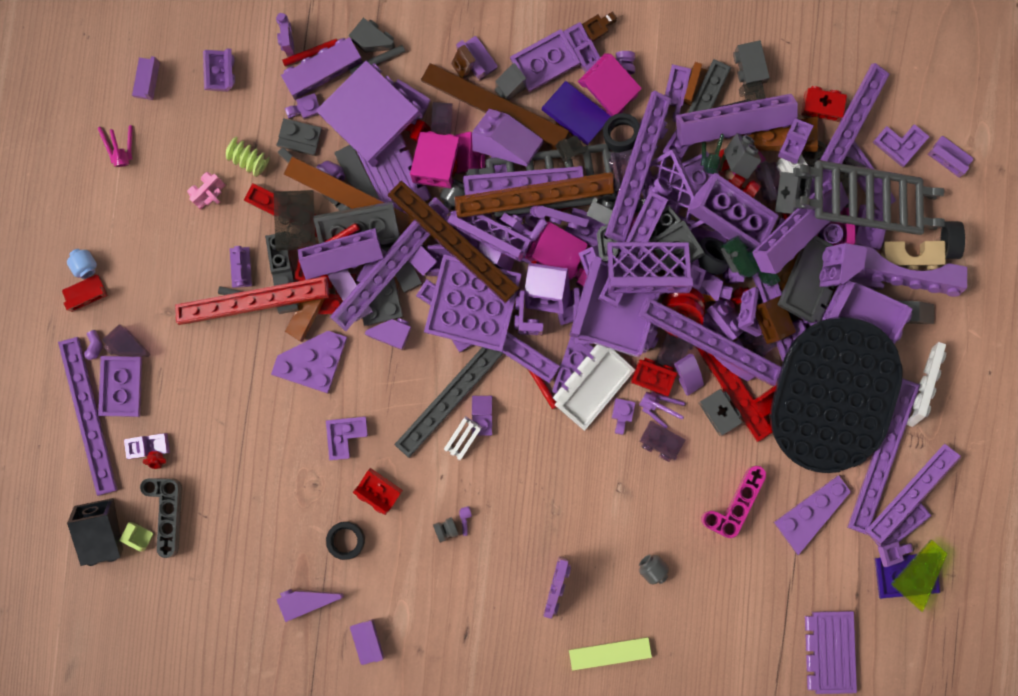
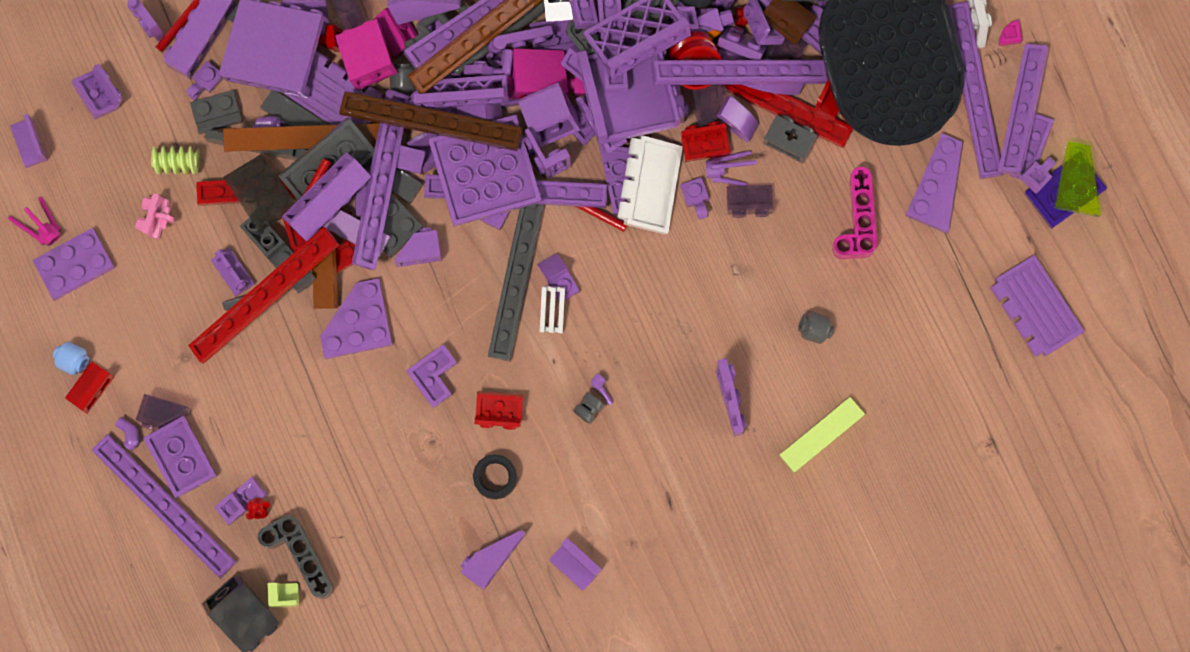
camera: 25 degrees left, 5 degrees down
(126, 191) = (73, 264): none -> medium lavender plate
(937, 429) = (1011, 34): none -> dark pink tile

